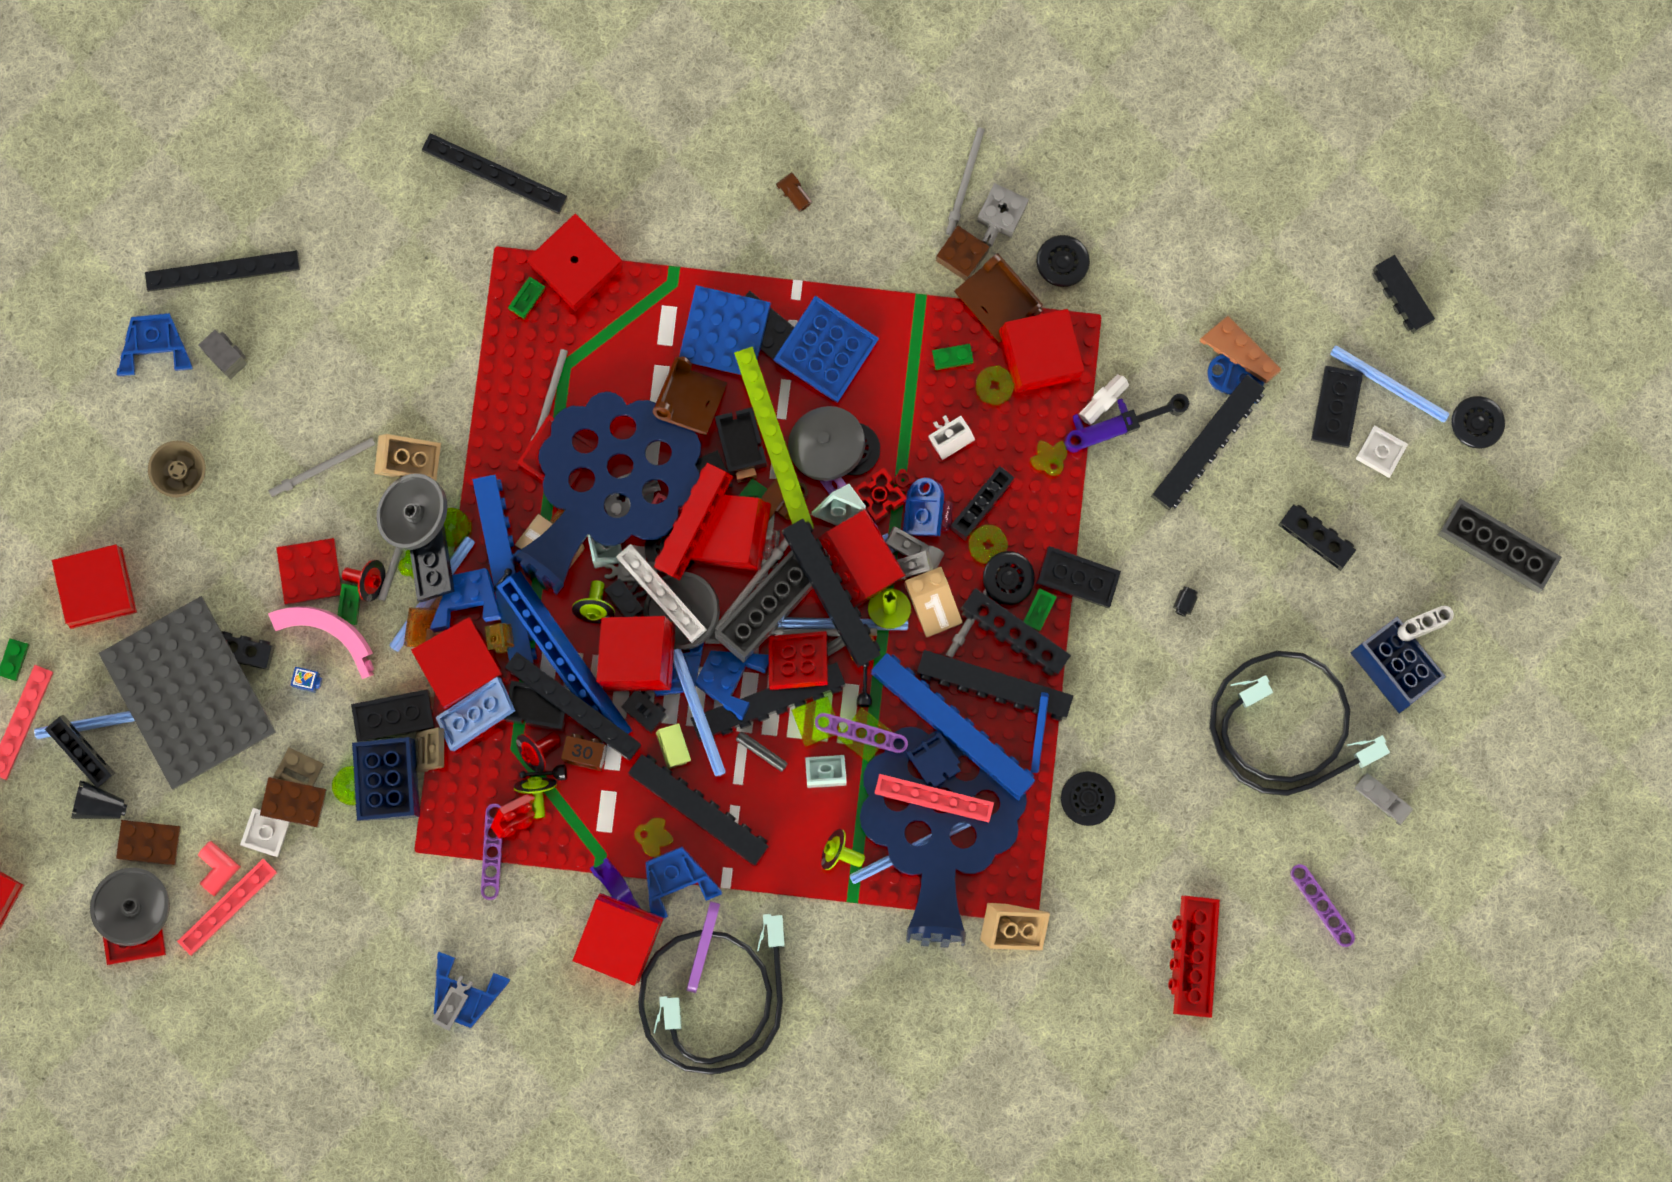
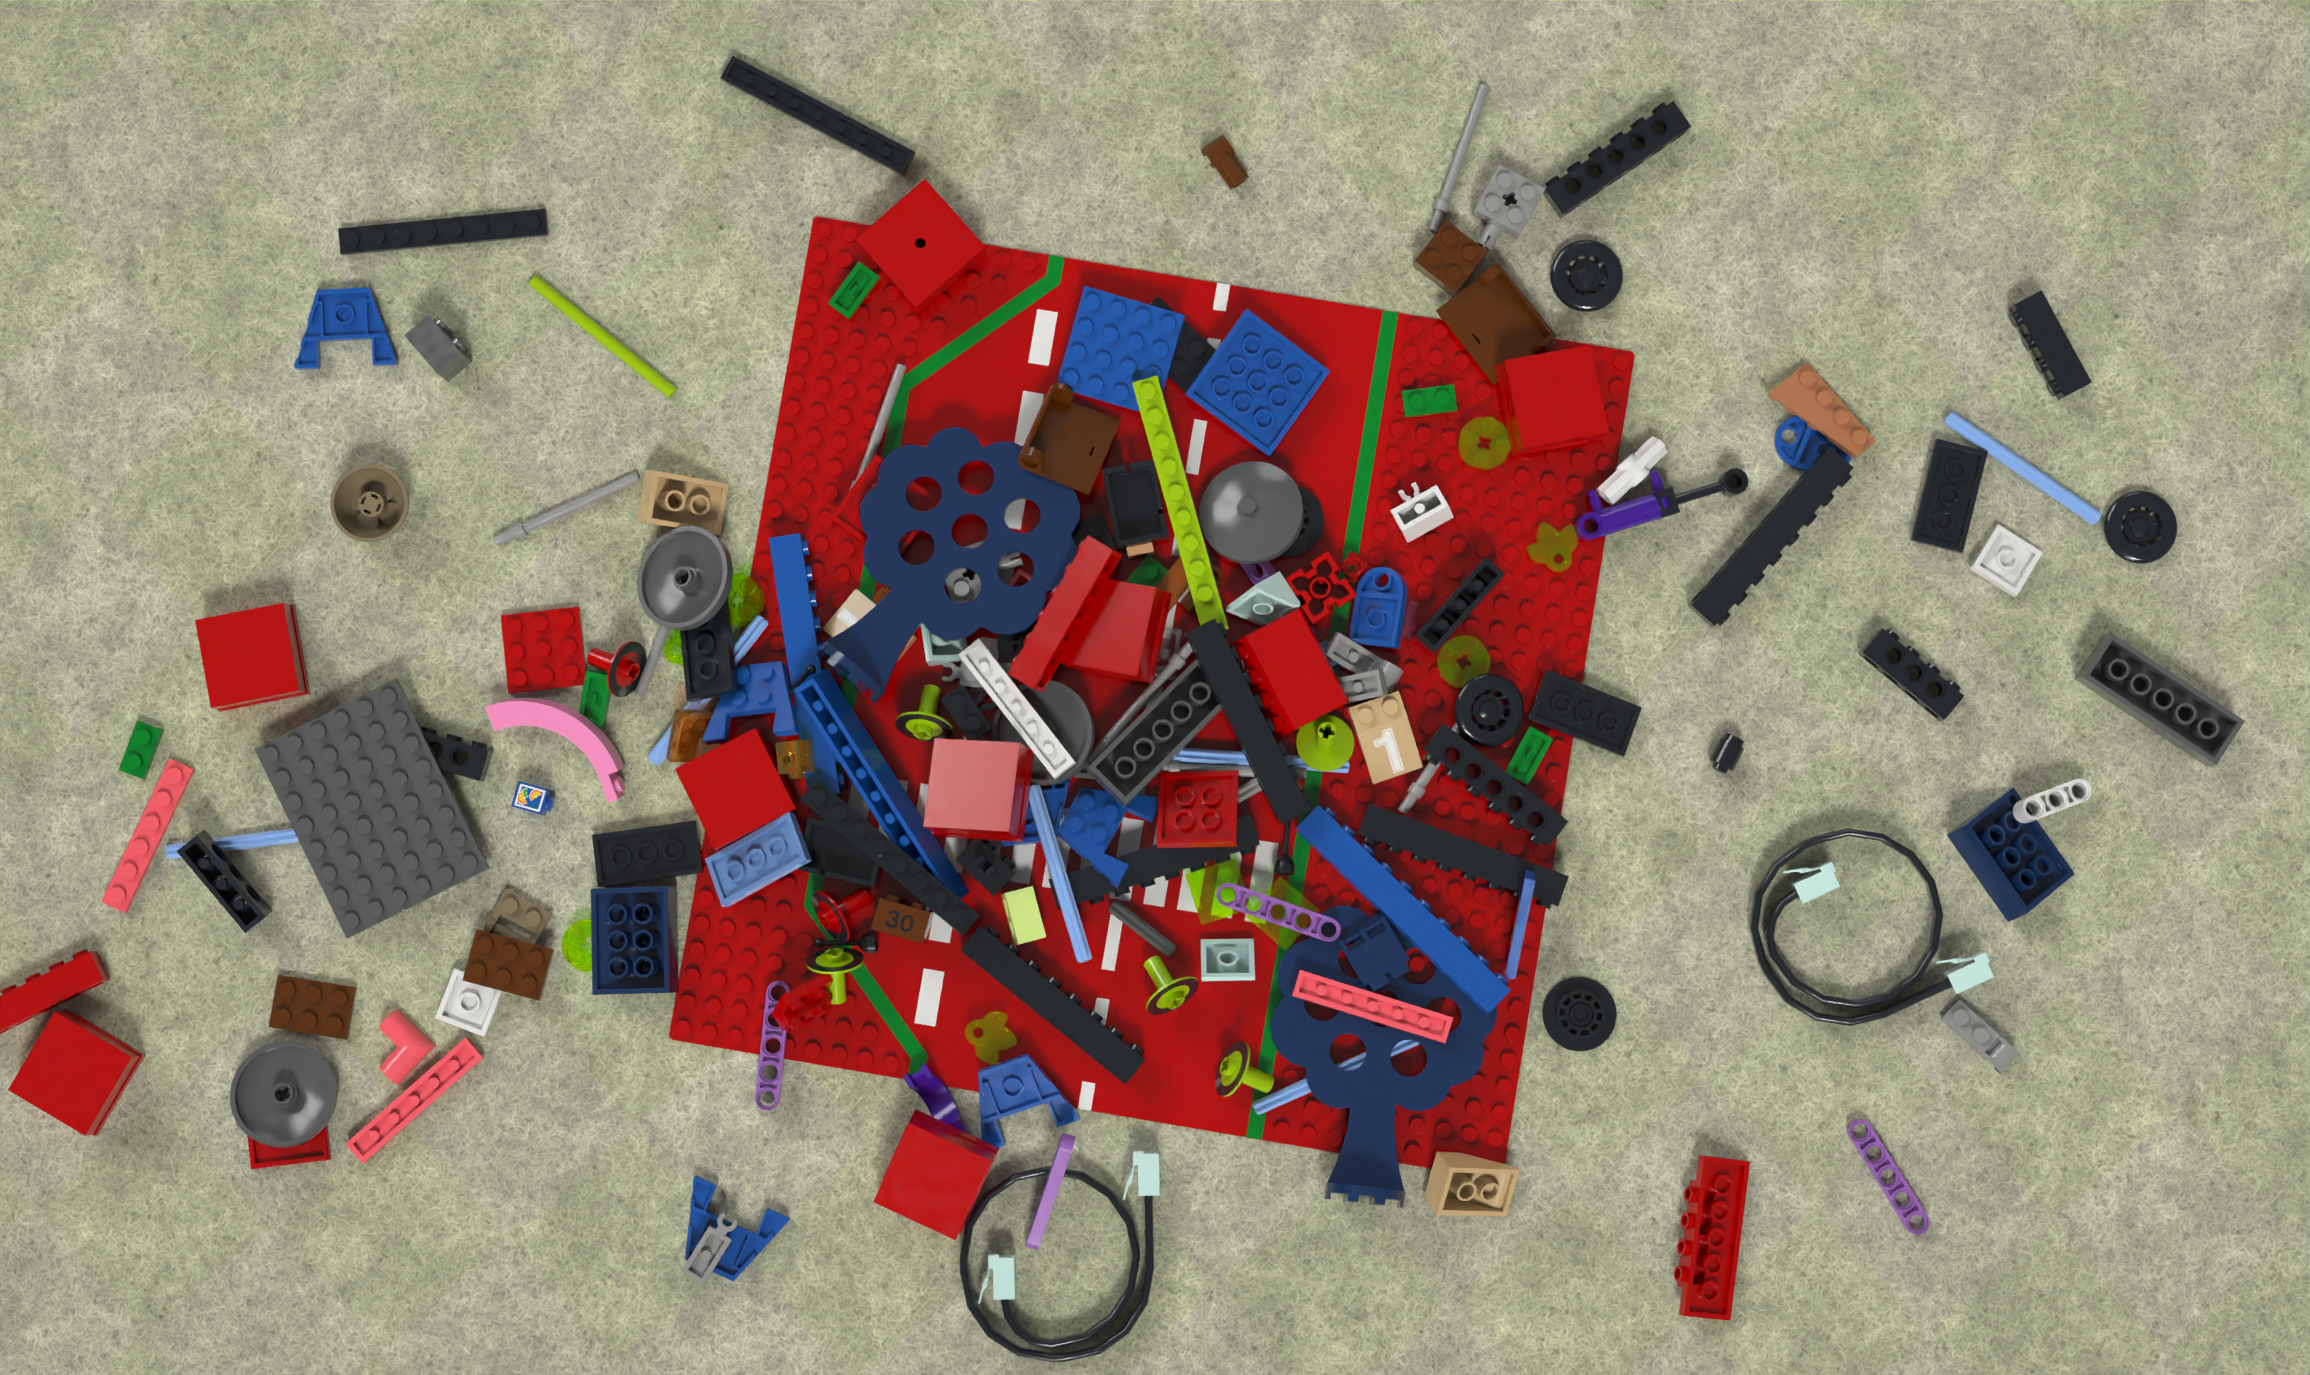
camera: 10 degrees right, 5 degrees up
(97, 803) = (245, 953): black cone -> none
(343, 341) = (602, 336): none -> lime piece
(430, 749) = (696, 903): dark tan plate -> none
(784, 796) = (1170, 992): none -> lime piece
(1112, 142) = (1674, 127): none -> black brick

